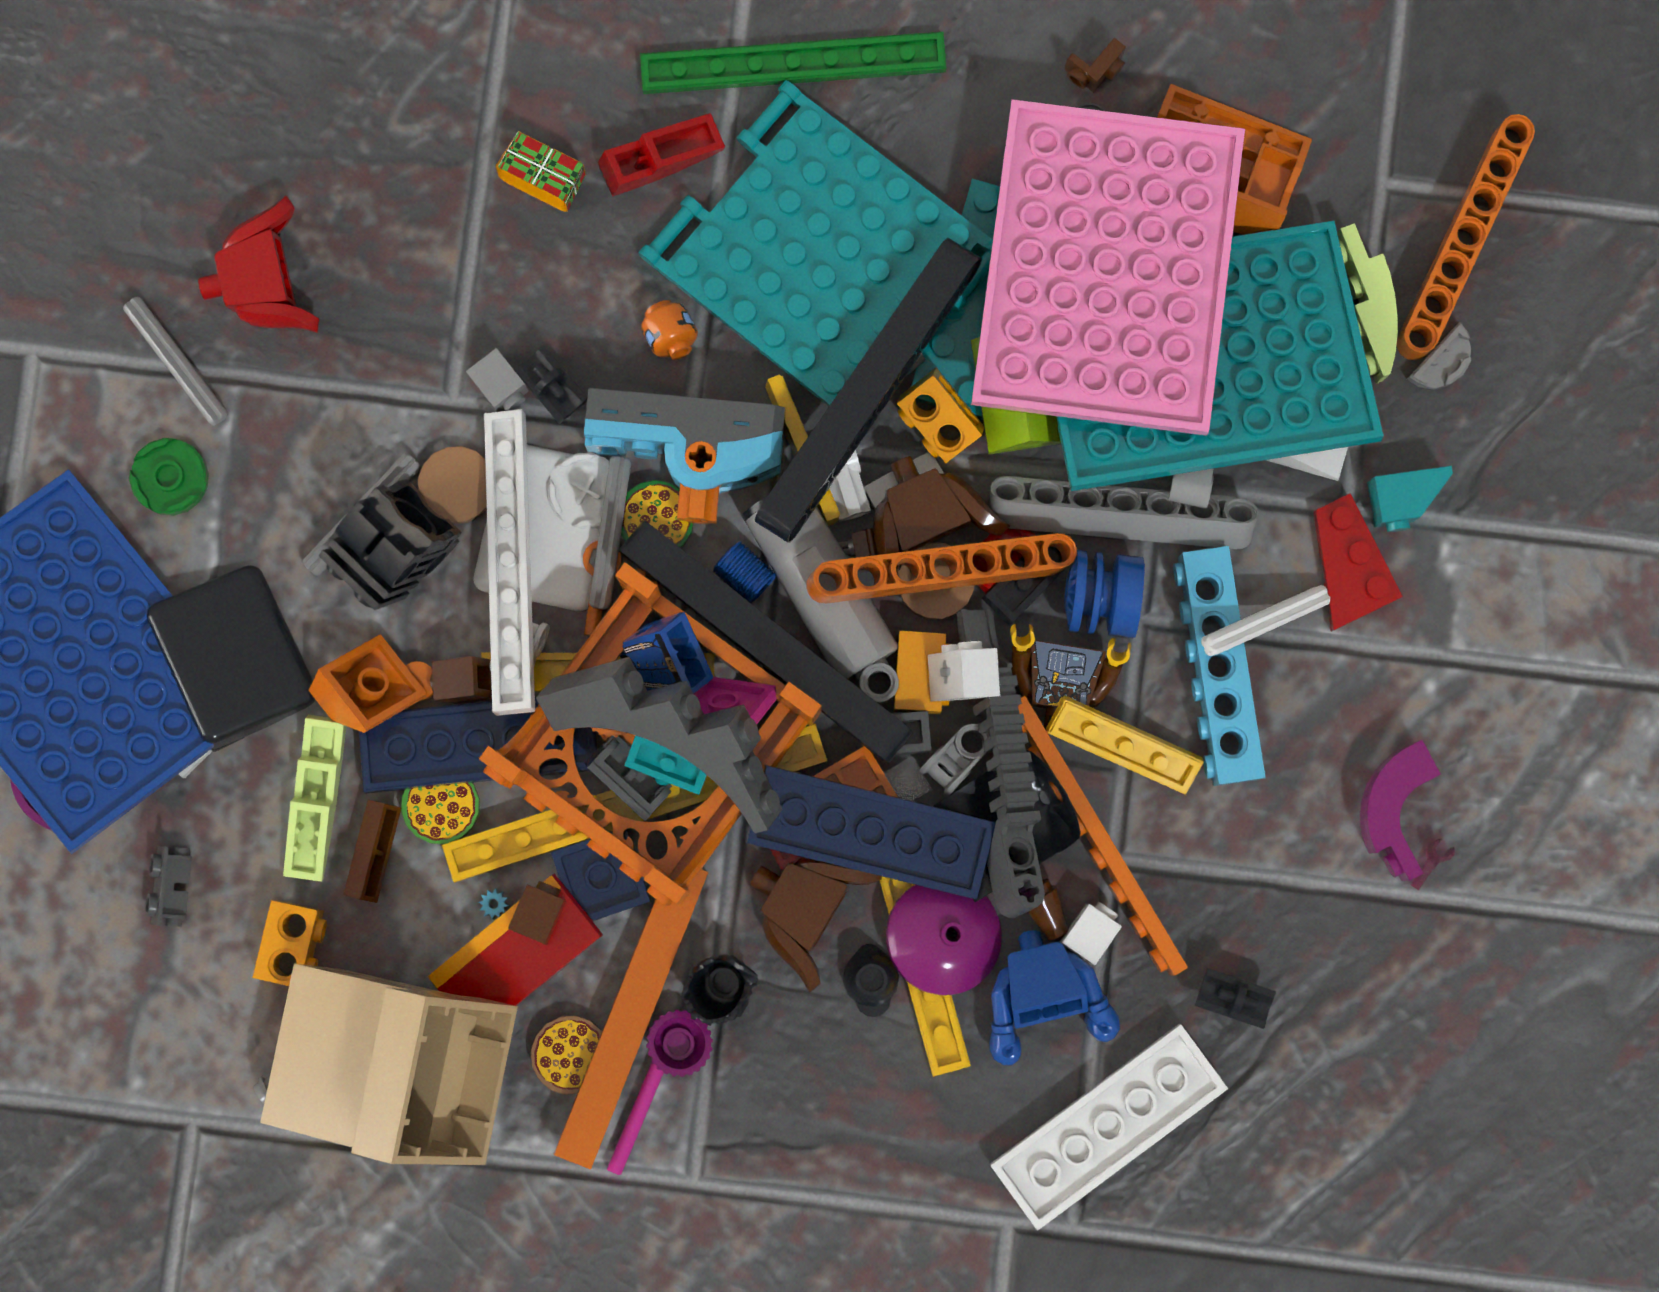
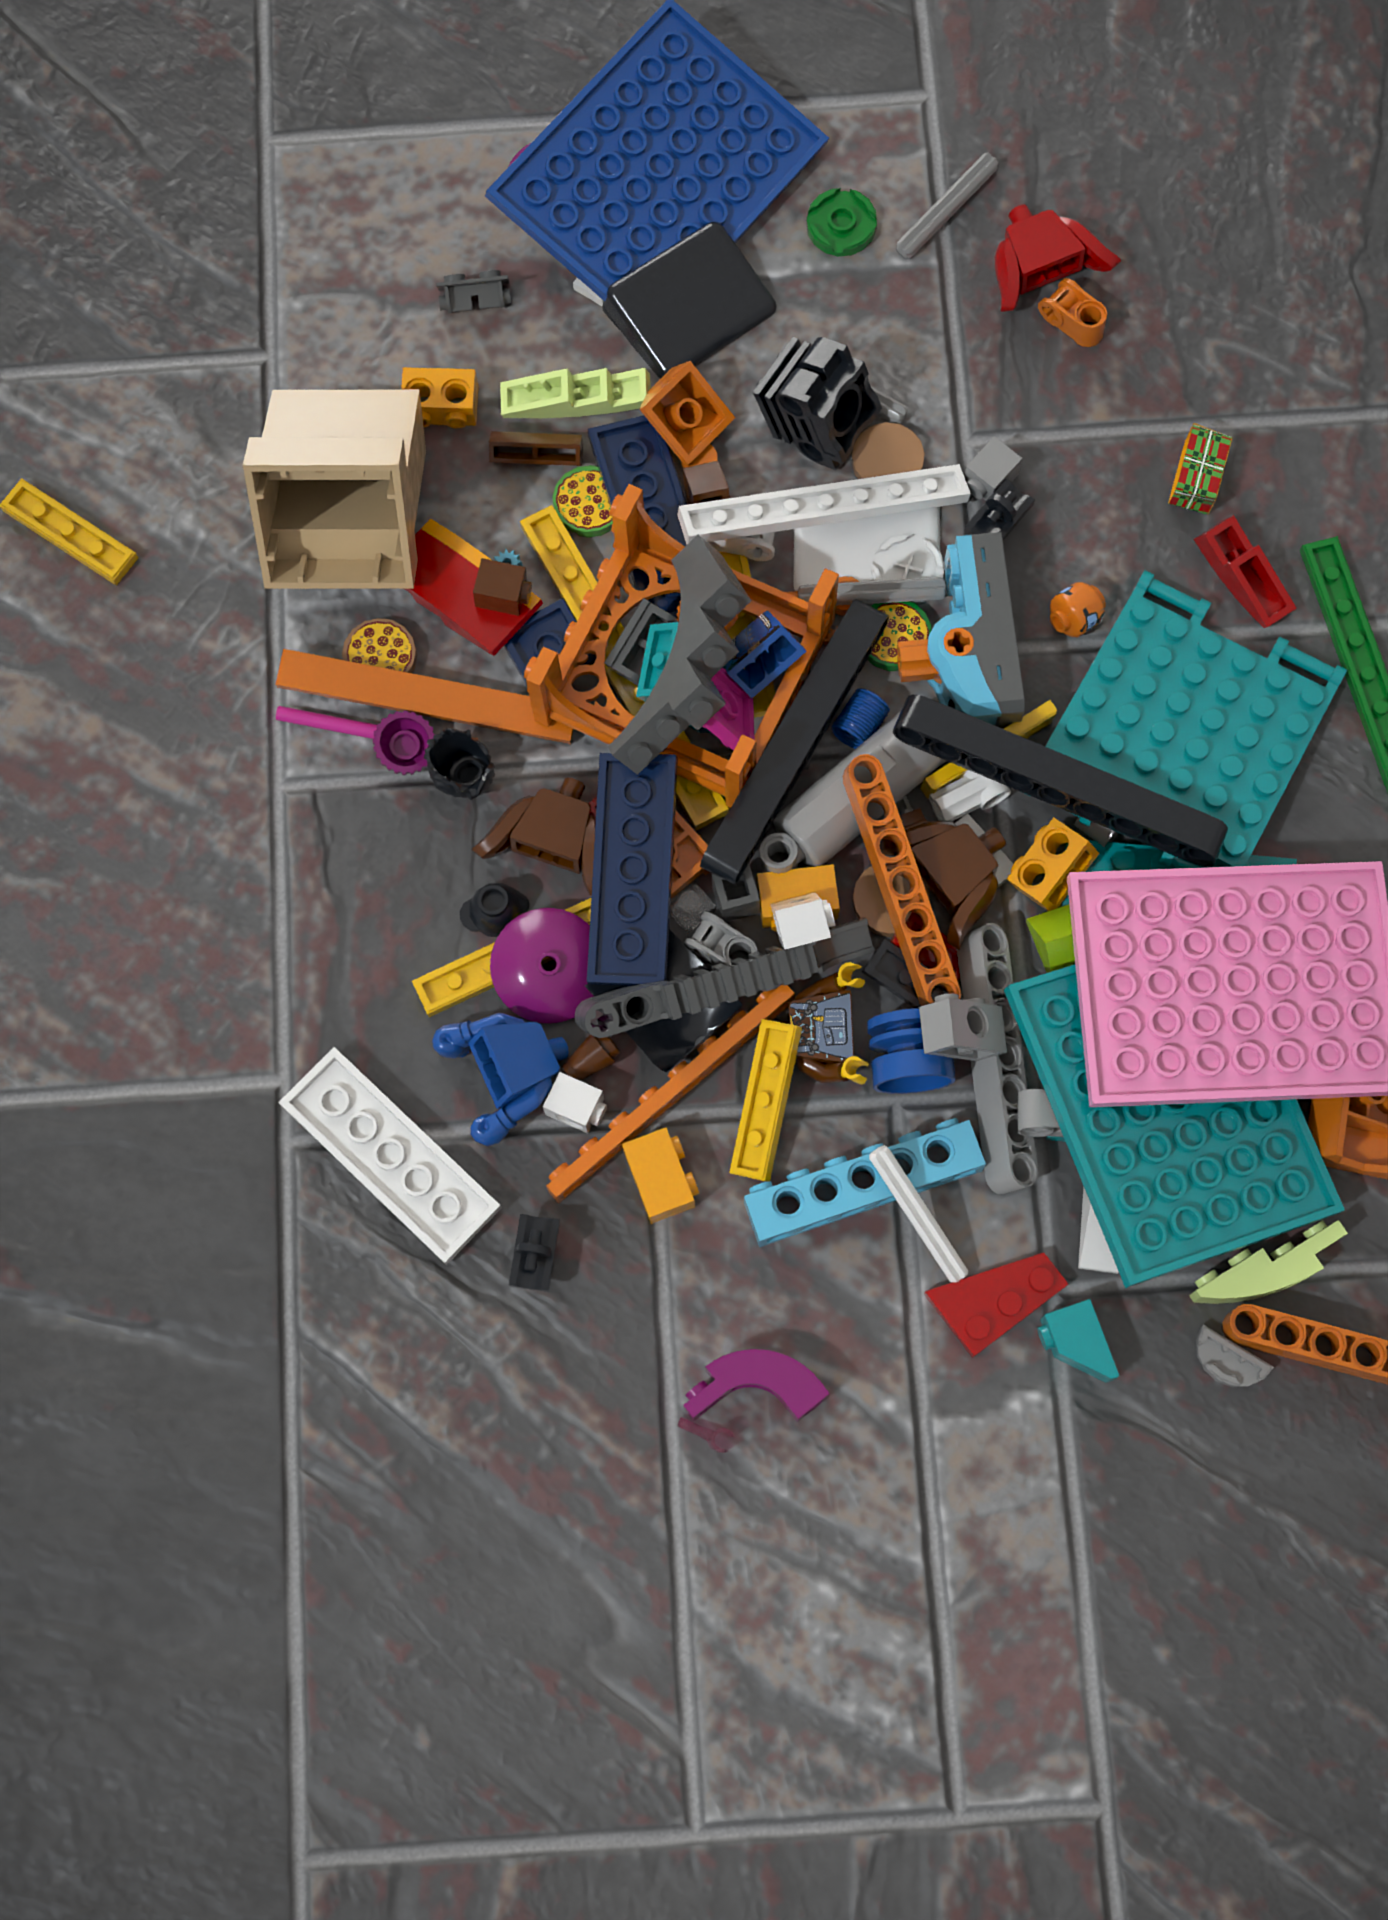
camera: 85 degrees right, 10 degrees down
(331, 258) = (1069, 310): none -> orange piece
(1102, 539) = (962, 1028): none -> light grey brick
(1178, 862) = (659, 1174): none -> light orange brick

